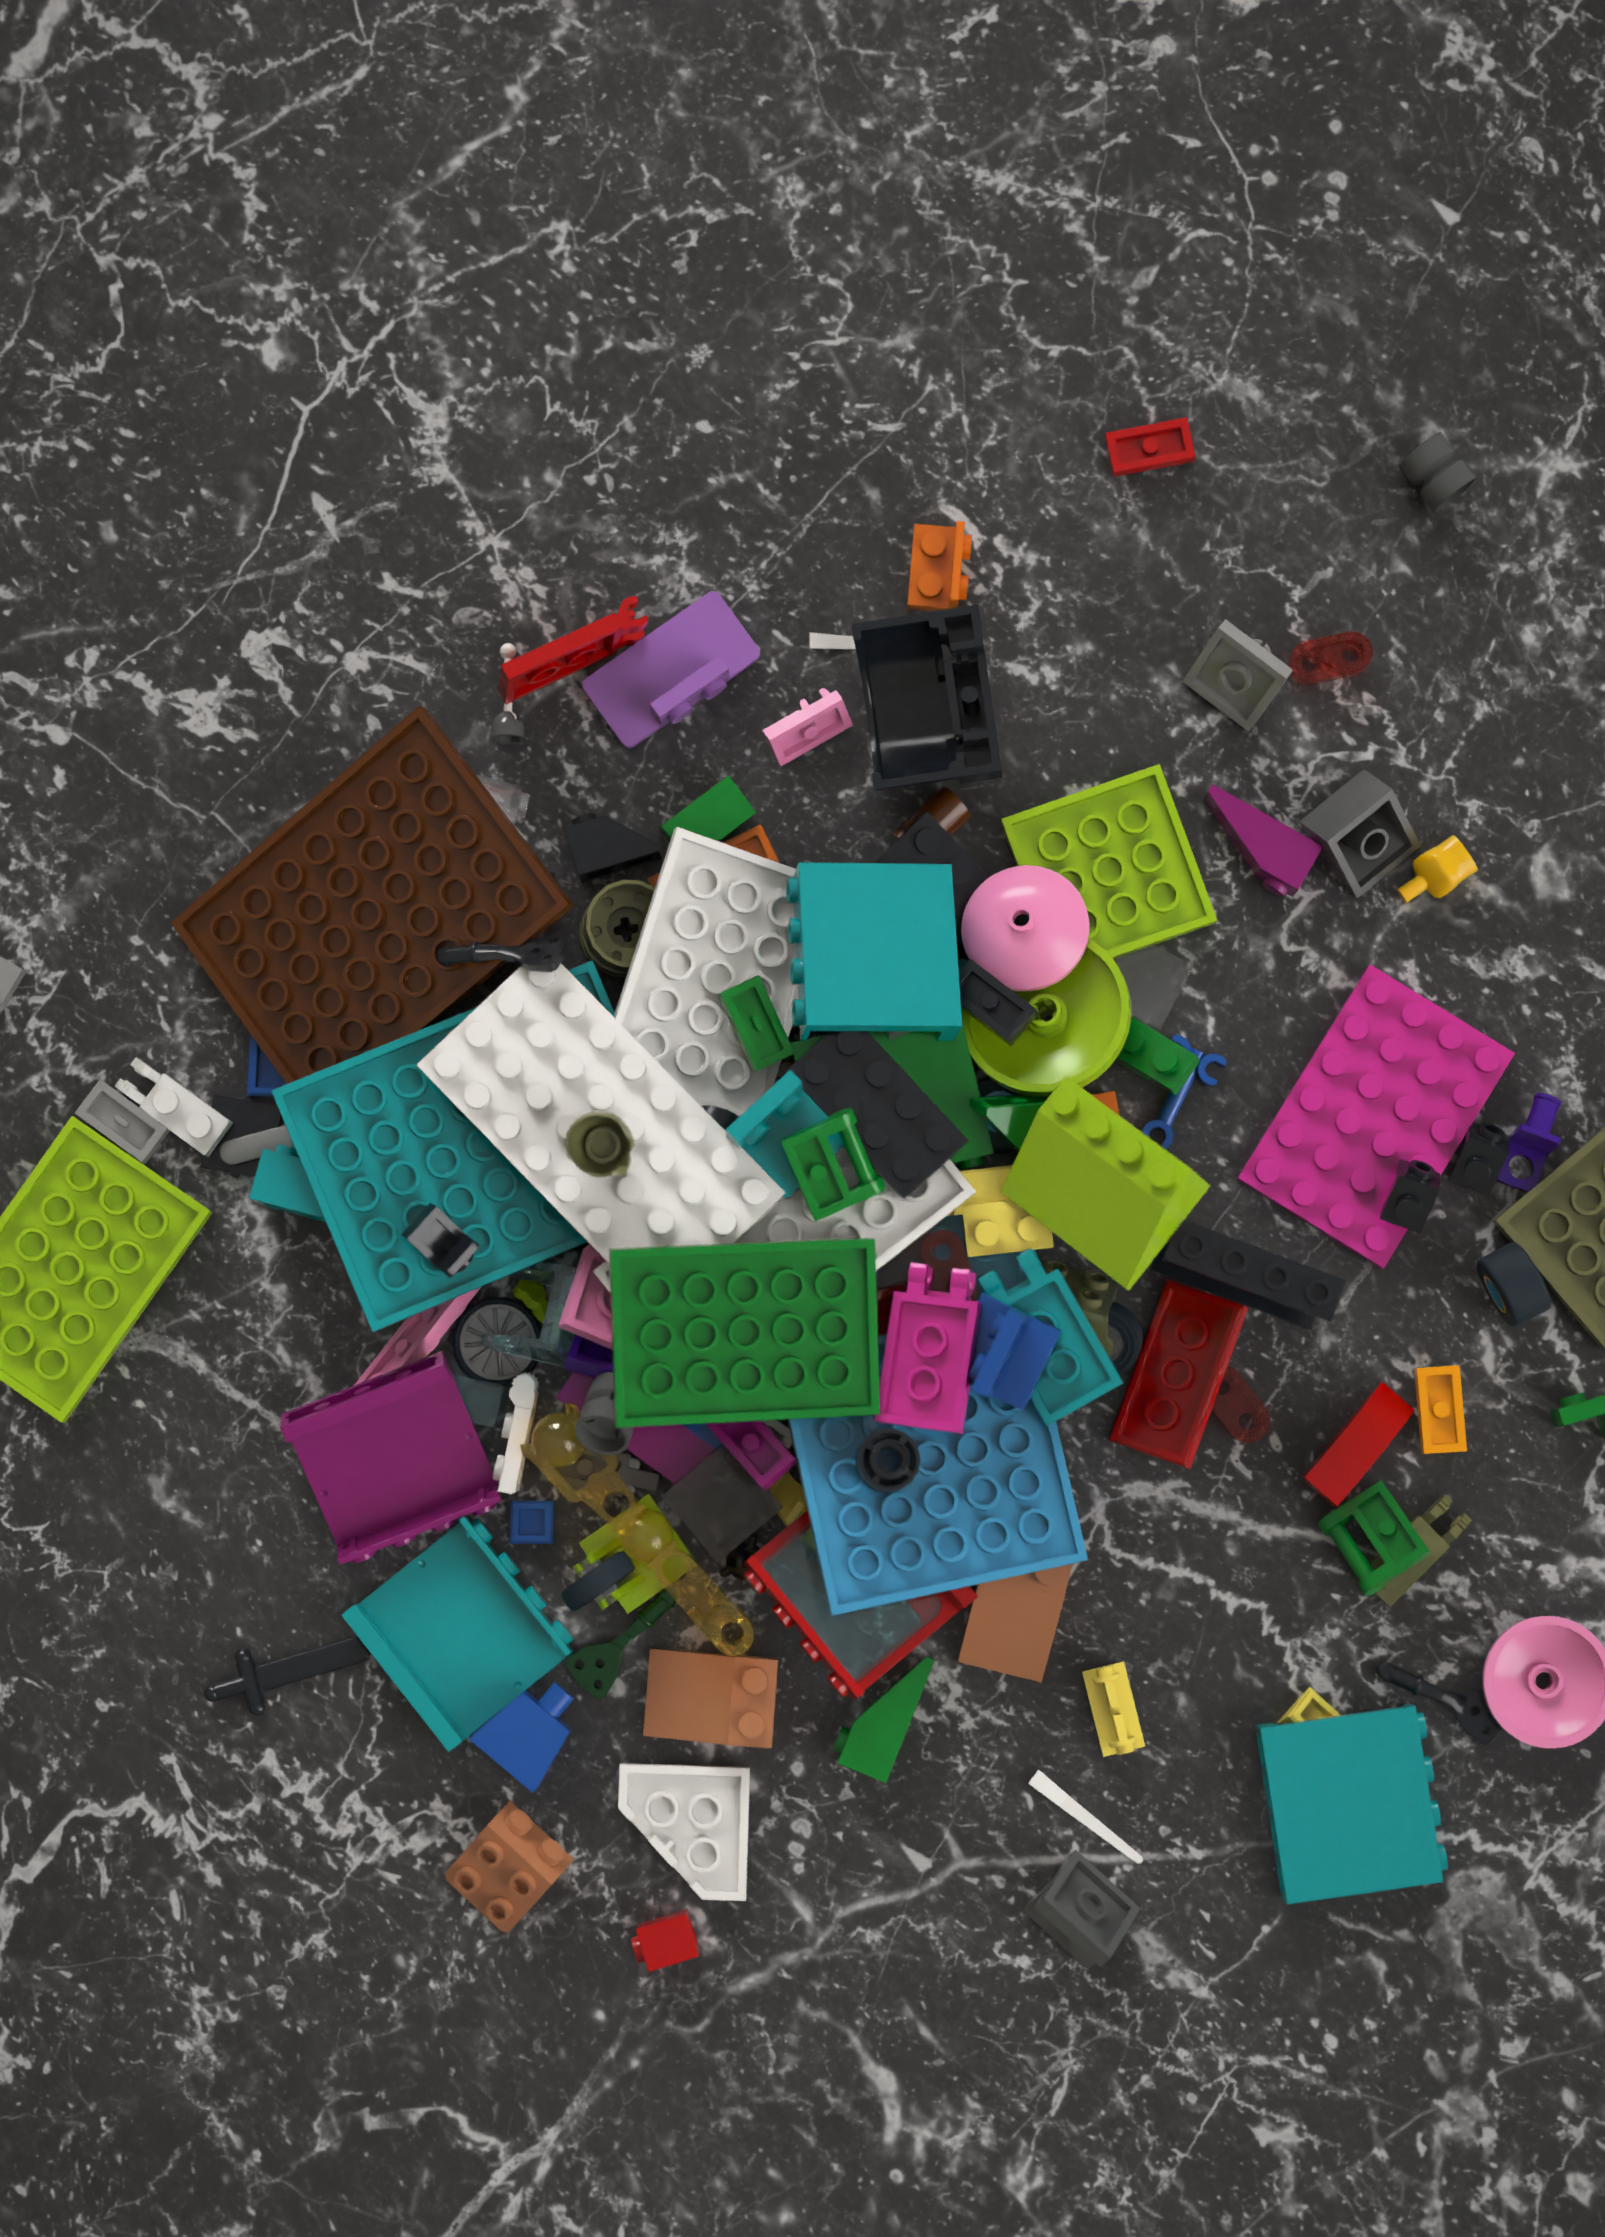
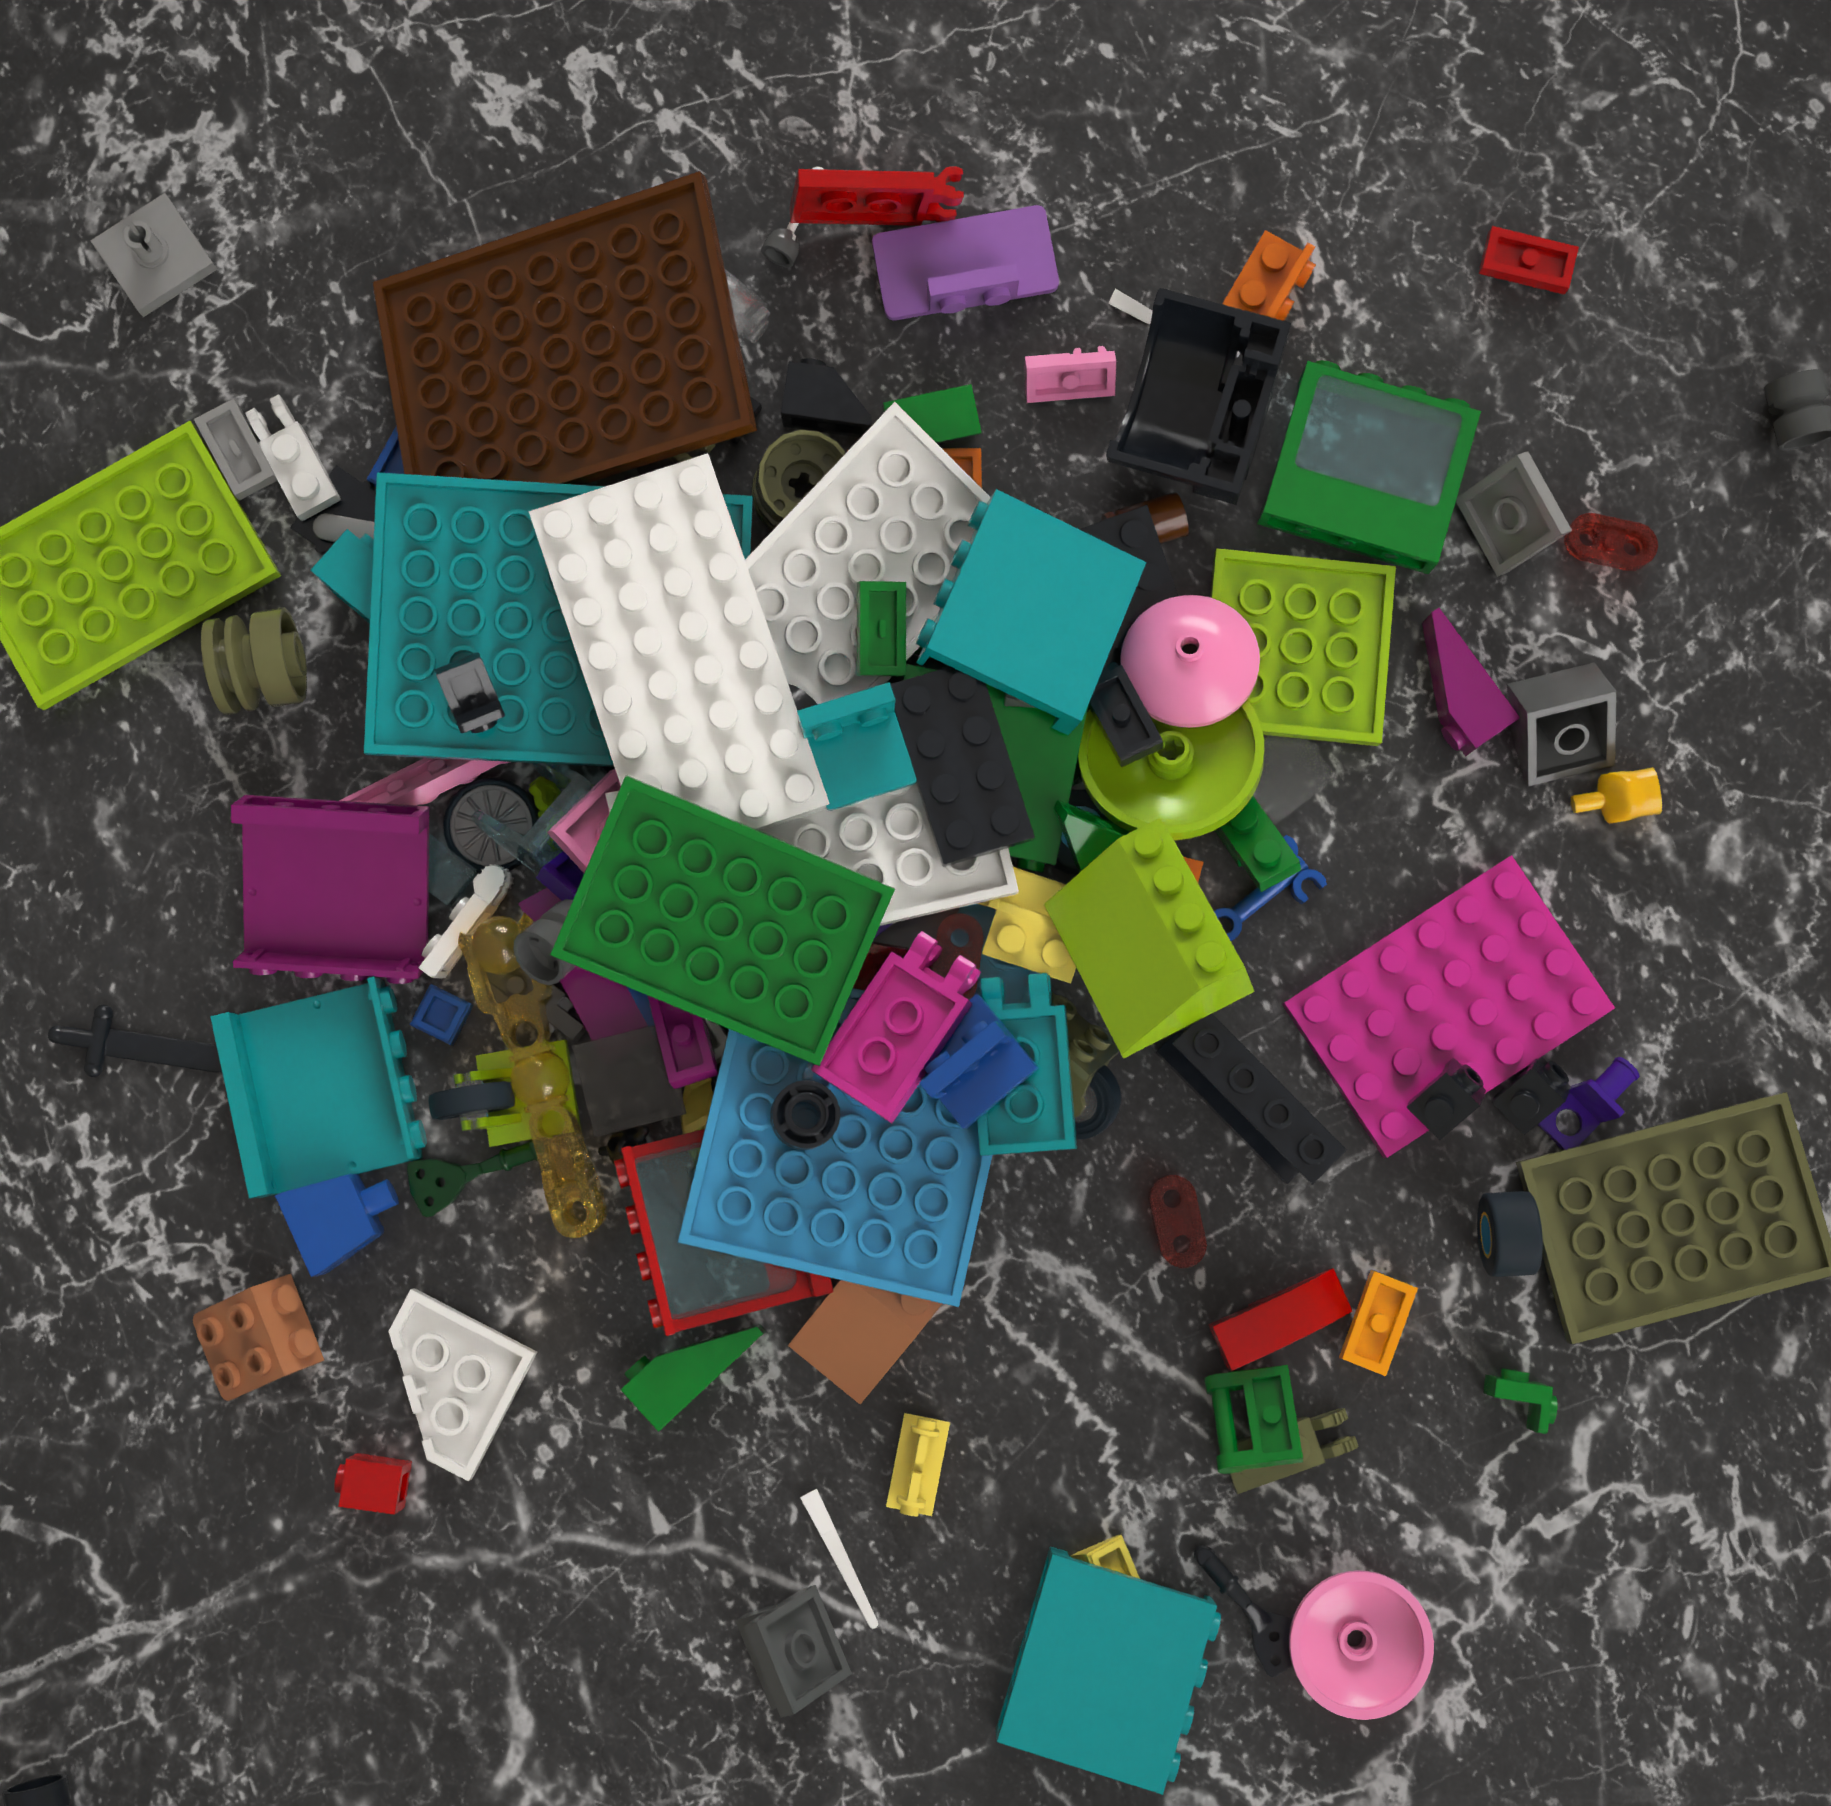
camera: 20 degrees right, 0 degrees up
(225, 1301) = (245, 662): none -> olive wheel
(538, 955) = (696, 460): black piece -> none
(600, 1144) = (666, 667): olive hair -> none
(711, 1698) = (532, 1268): nougat slope -> none
(818, 1168) = (871, 797): green plate -> none
(1098, 687) = (1370, 466): none -> panel
(1178, 1374) = (1136, 1166): red tile -> none

